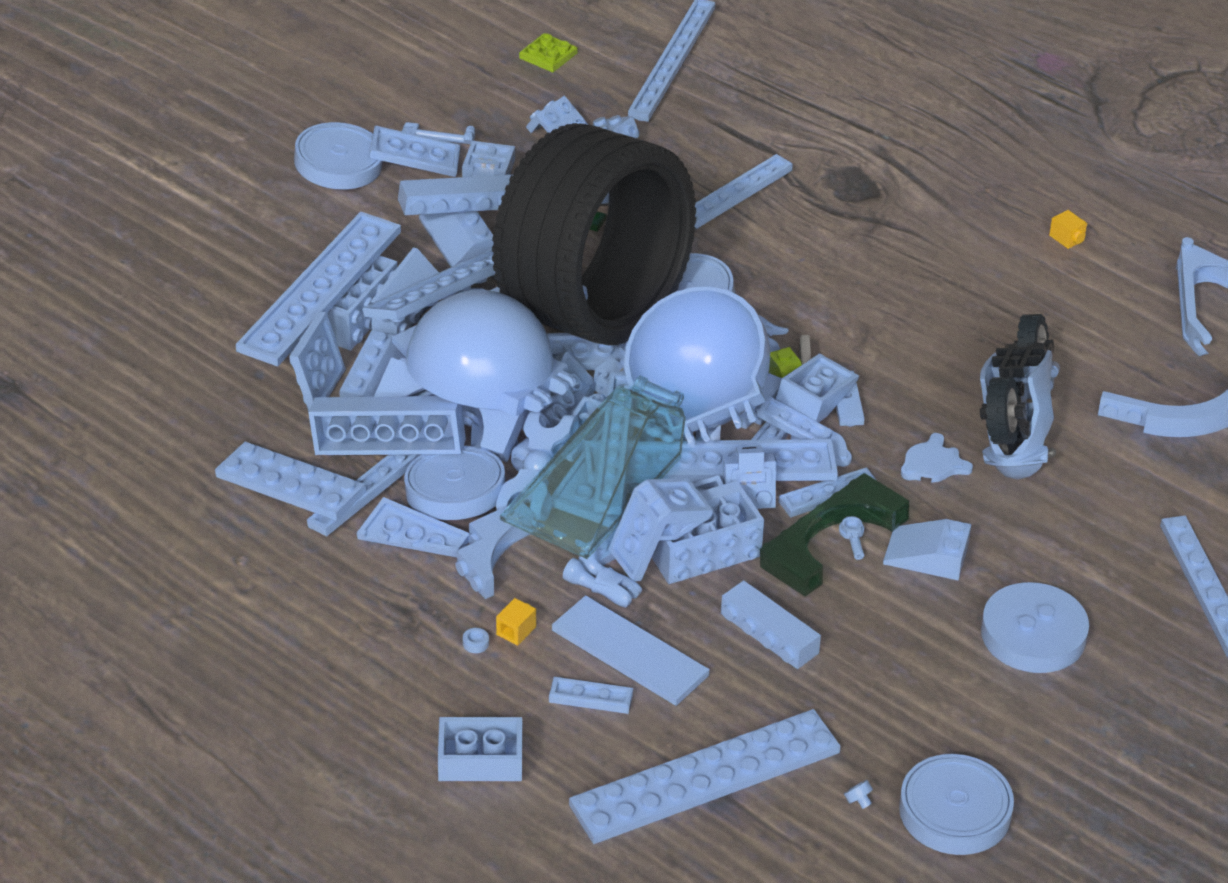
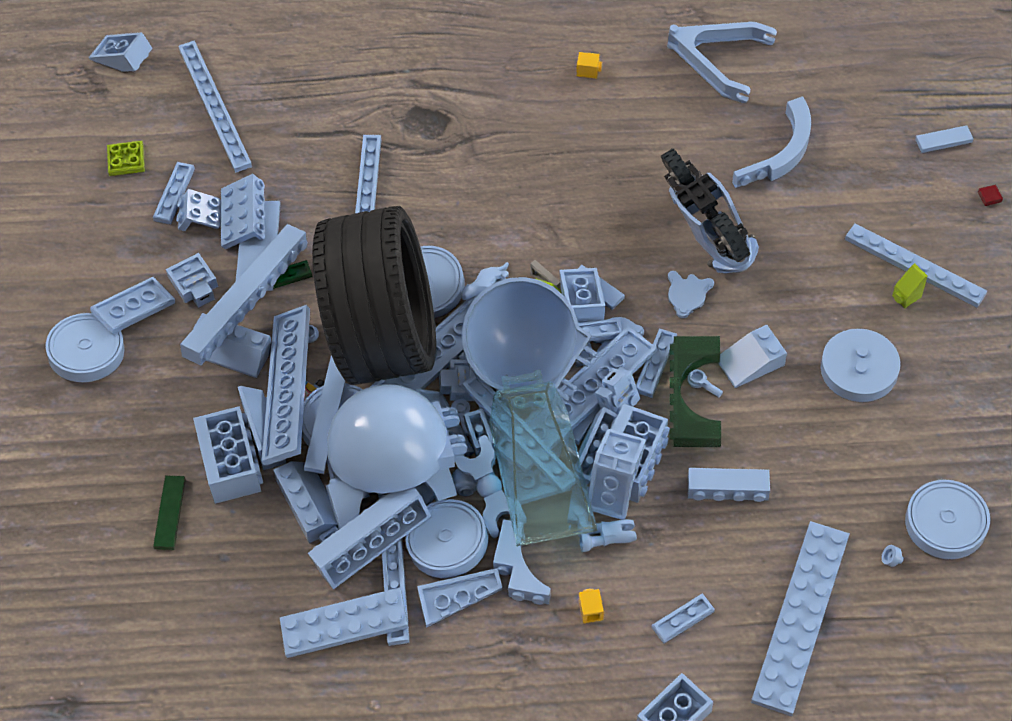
camera: 40 degrees left, 15 degrees up
(246, 317) = (169, 512): none -> dark green tile
(317, 360) = (272, 523): light blue plate -> none
(318, 288) = (219, 470): light blue plate -> none
(467, 138) = (107, 290): light blue hinge -> none
(475, 640) = (578, 638): light blue tile -> none
(574, 93) = (174, 190): none -> light blue tile
(630, 650) = (670, 568): light blue tile -> none
(1170, 597) = (910, 286): none -> lime slope

